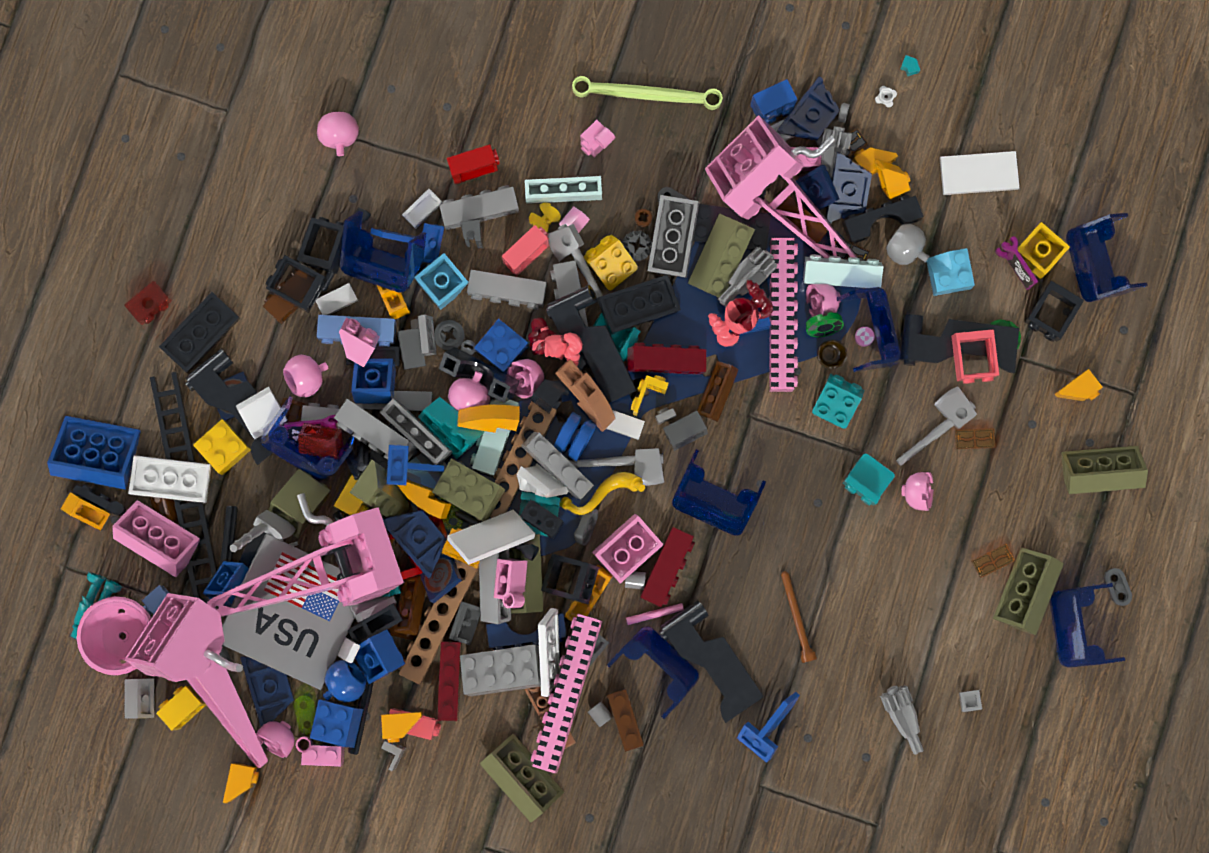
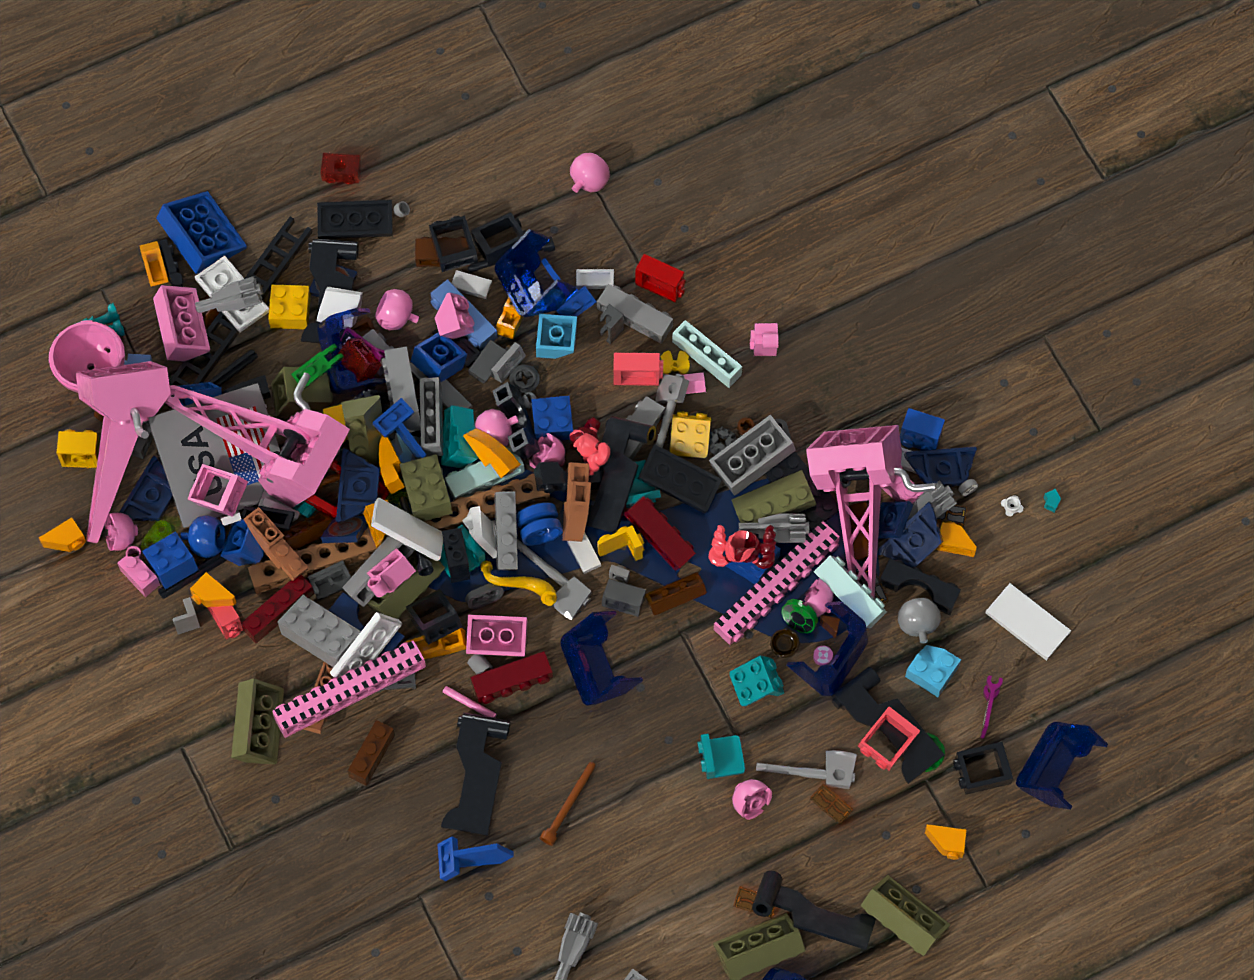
camera: 45 degrees right, 15 degrees down
(139, 698) = (58, 419): light grey panel -> none
(176, 482) = (233, 296): none -> light grey piece
(226, 291) = (401, 209): none -> light grey hinge
(268, 523) = (266, 378): light grey piece -> none
(296, 478) = (317, 365): none -> green hinge
(337, 636) = (232, 493): none -> bright pink window
(405, 641) = (274, 545): none -> nougat slope
(506, 288) = (597, 384): light grey brick -> none
(600, 714) = (358, 732): light grey beam -> none
(647, 93) = (837, 345): yellowish green piece -> none
(663, 654) = (444, 761): clear blue windscreen -> none
(850, 309) = (830, 624): none -> reddish brown slope
(892, 179) = (956, 562): light orange slope -> none
(1042, 250) = (1016, 714): yellow brick -> none
(1043, 537) = (808, 917): none -> black door

